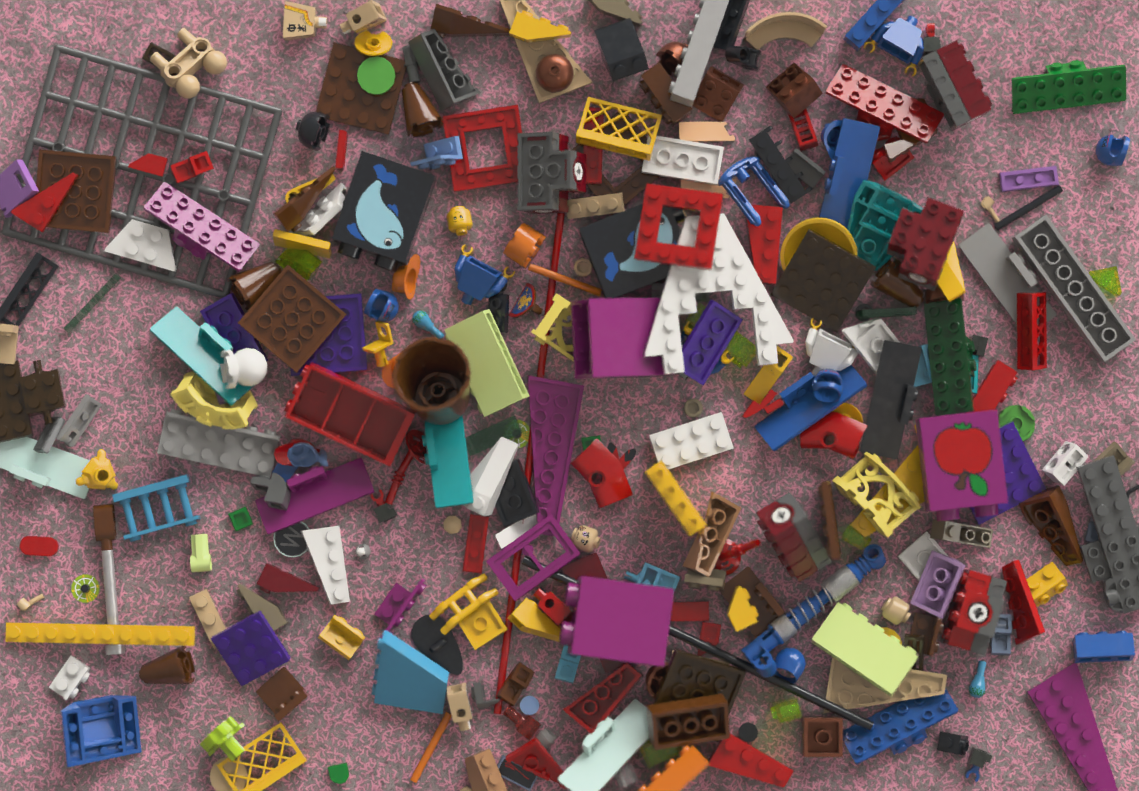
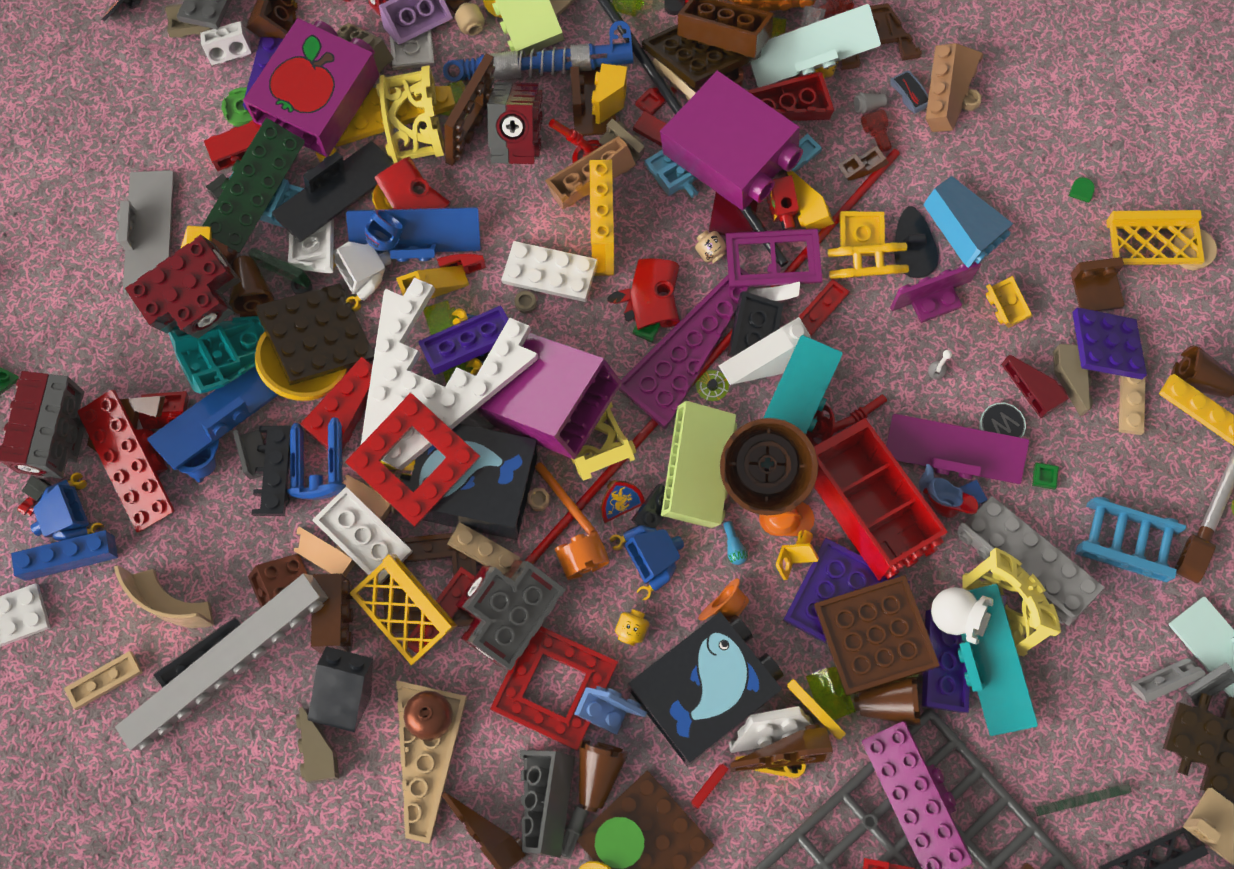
camera: 145 degrees left, 15 degrees down
(98, 473) = (1176, 610): yellow rock -> none
(144, 244) = (989, 824): white wing -> none
(200, 559) = (1110, 462): yellowish green piece -> none
(223, 738) = (1187, 277): lime piece -> none
(277, 490) = (993, 473): dark grey brick -> none
(313, 129) = (727, 829): black cylinder -> none
(328, 559) = (977, 384): white wing -> none
(382, 306) = (769, 590): blue helmet -> none
(383, 511) = (894, 392): pearl dark grey piece -> none
(431, 746) = (979, 159): orange bar -> none
(452, 524) = (832, 338): tan tile -> none
(459, 699) = (931, 167): tan torso -> none
(478, 693) = (904, 167): dark grey plate -> none
(488, 437) = (737, 395): clear green tile -> none
(529, 705) = (860, 141): light blue piece -> none
(533, 30) = (419, 779): yellow slope -> none
(536, 759) = (885, 84): red wing -> none
(670, 56) = (294, 649): copper cylinder -> none
(743, 56) = (226, 602): black piece -> none
(773, 406) = (447, 250): red tile -> none
(792, 661) = (596, 28): blue helmet -> none
(794, 90) = (202, 536): copper slope -> none
(809, 143) = (216, 491): red slope -> none
(986, 203) = (111, 309): tan hand -> none
(1027, 208) = (77, 282): black bar -> none
(1028, 179) = (55, 308): medium lavender tile -> none
(1029, 331) = (163, 170): red fence -> none
(1073, 289) = (94, 182): light grey brick -> none
(1107, 279) = (58, 172): clear neon green slope -> none

